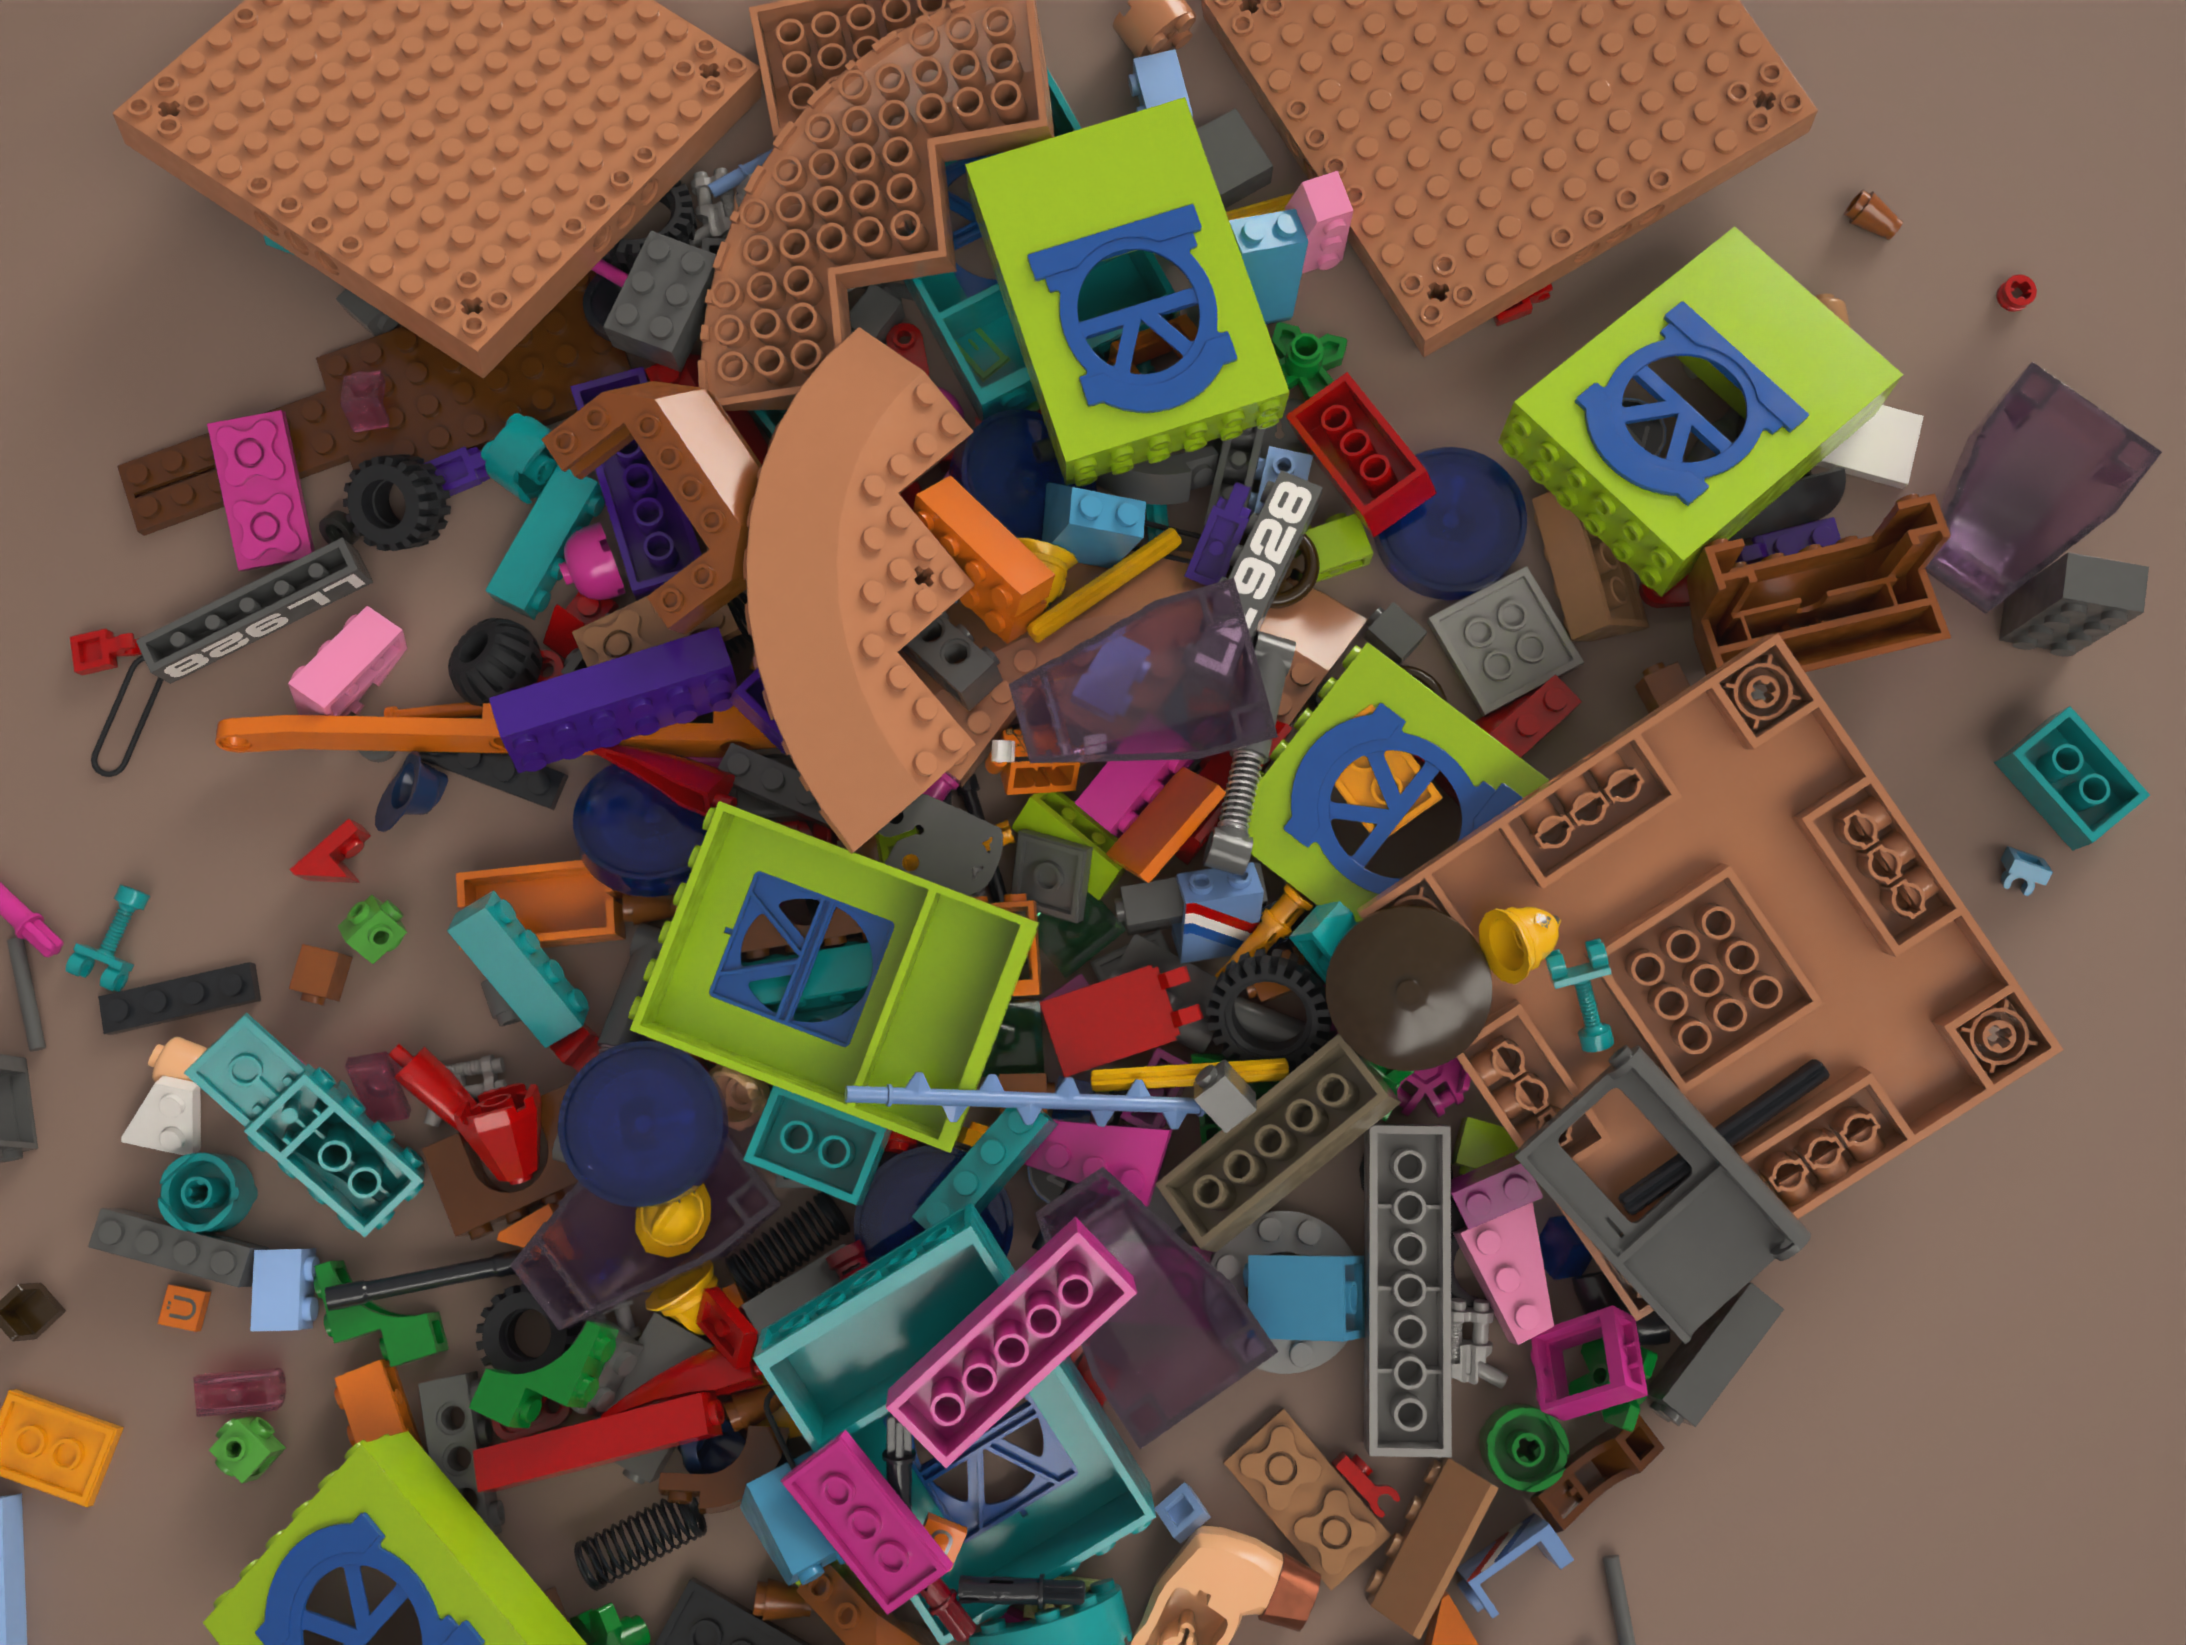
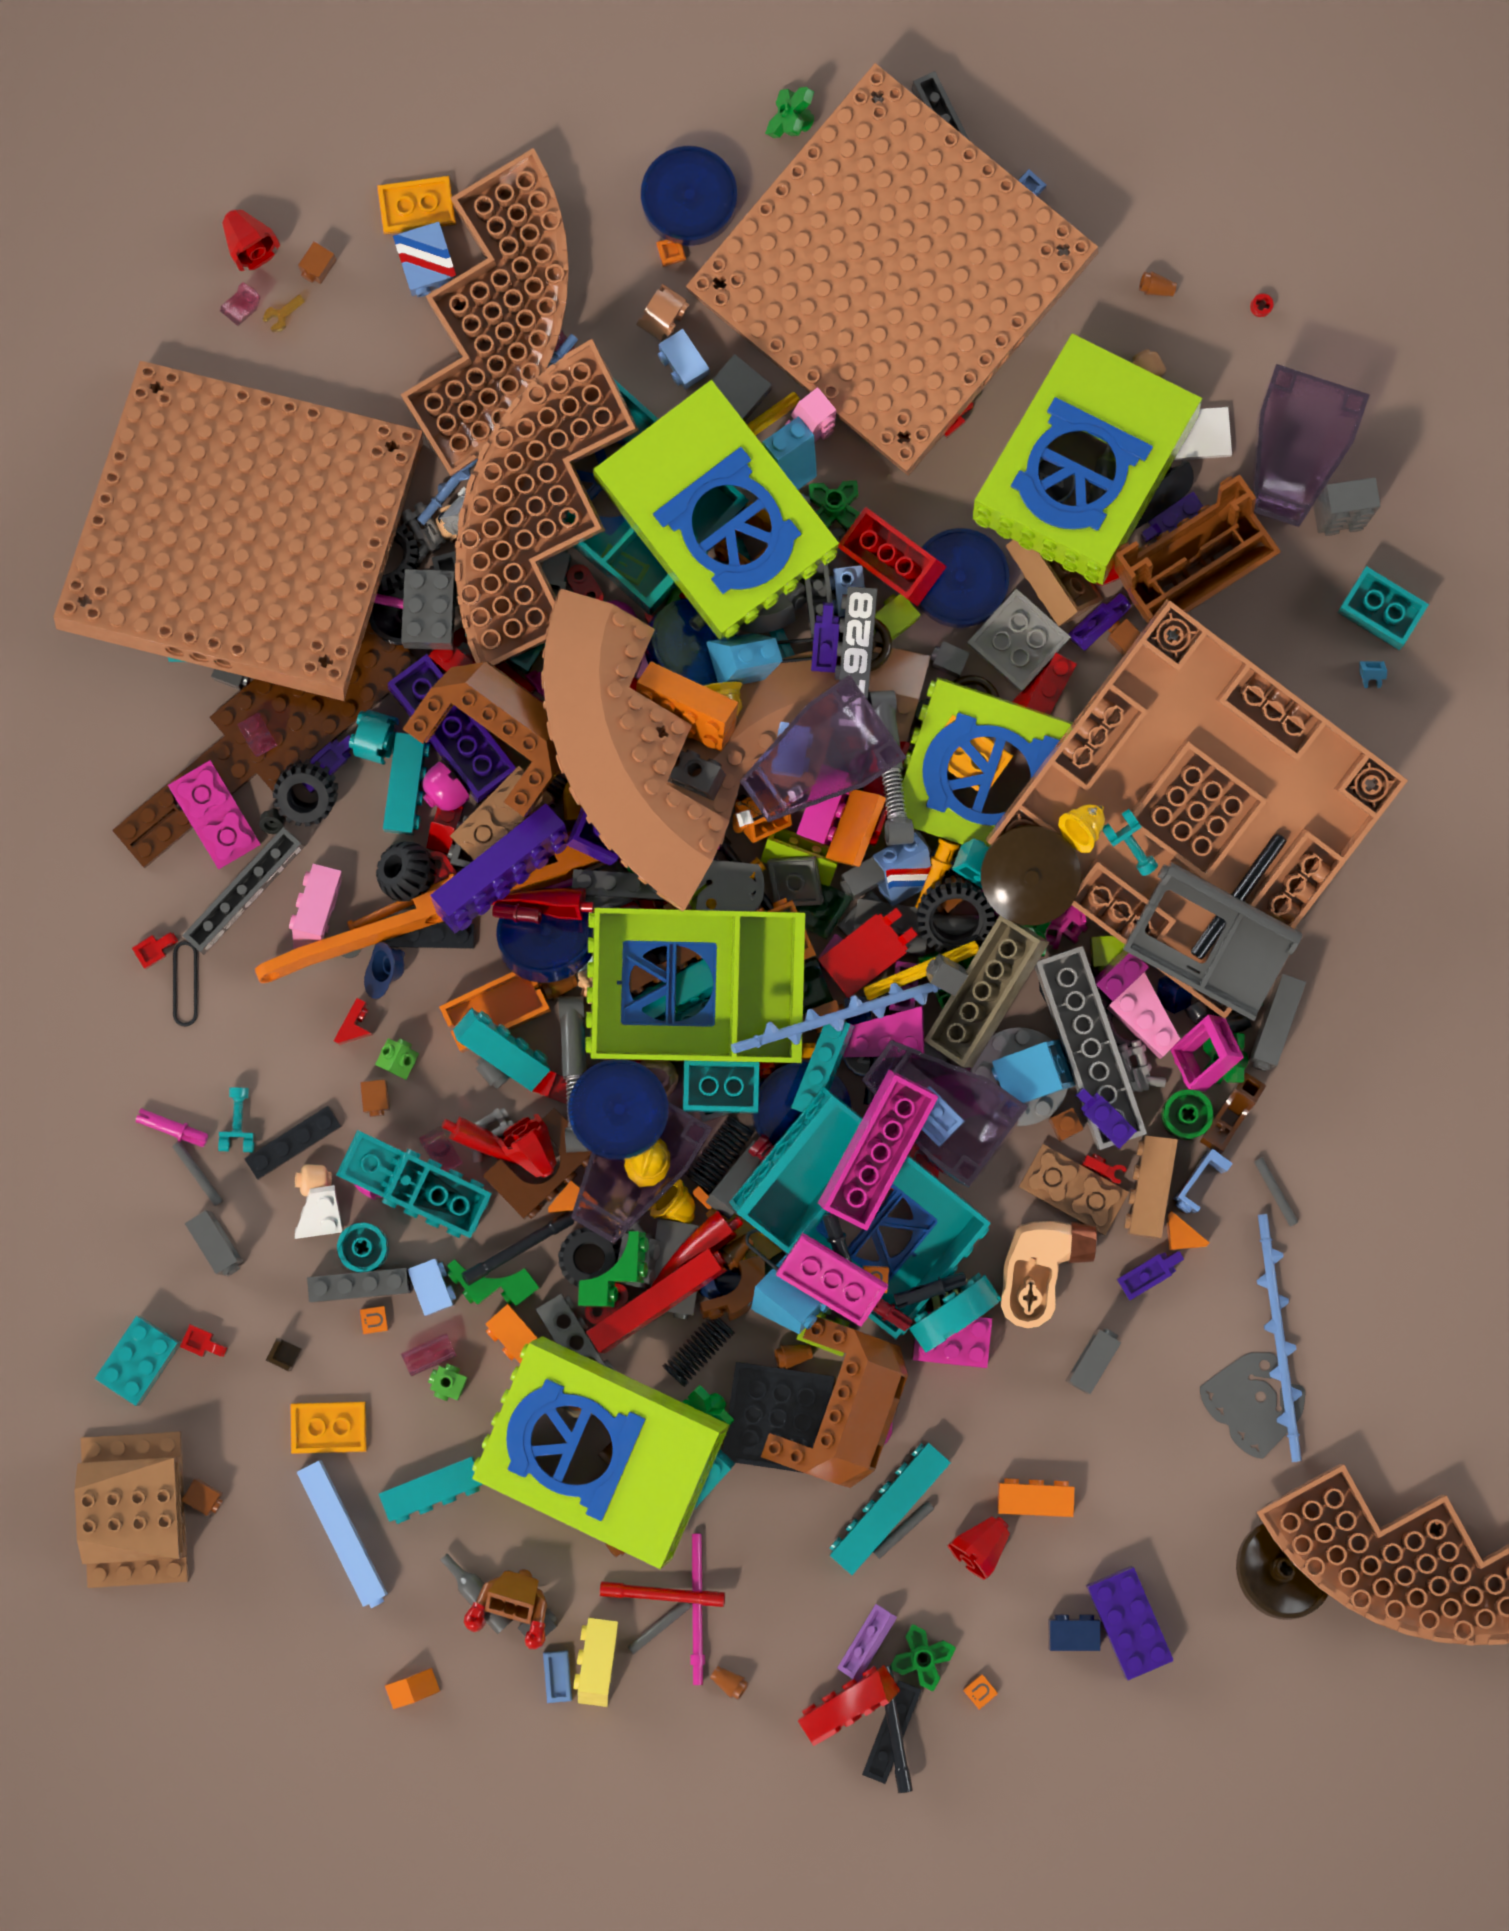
camera: 25 degrees left, 5 degrees up
(143, 1606) = (428, 1490): none -> teal brick
(622, 776) = (517, 913): none -> dark red axle
(726, 1327) = (706, 1209): red plate -> none
(1103, 585) = (764, 694): yellow axle -> none
(1140, 1320) = (942, 1121): none -> medium blue plate
(1182, 1512) = (1005, 1222): light blue plate -> none
(1329, 1393) = (1066, 1124): none -> dark orange brick
(1396, 1410) = (1106, 1118): none -> dark purple hinge
(1633, 655) = (1099, 621): none -> dark purple hinge

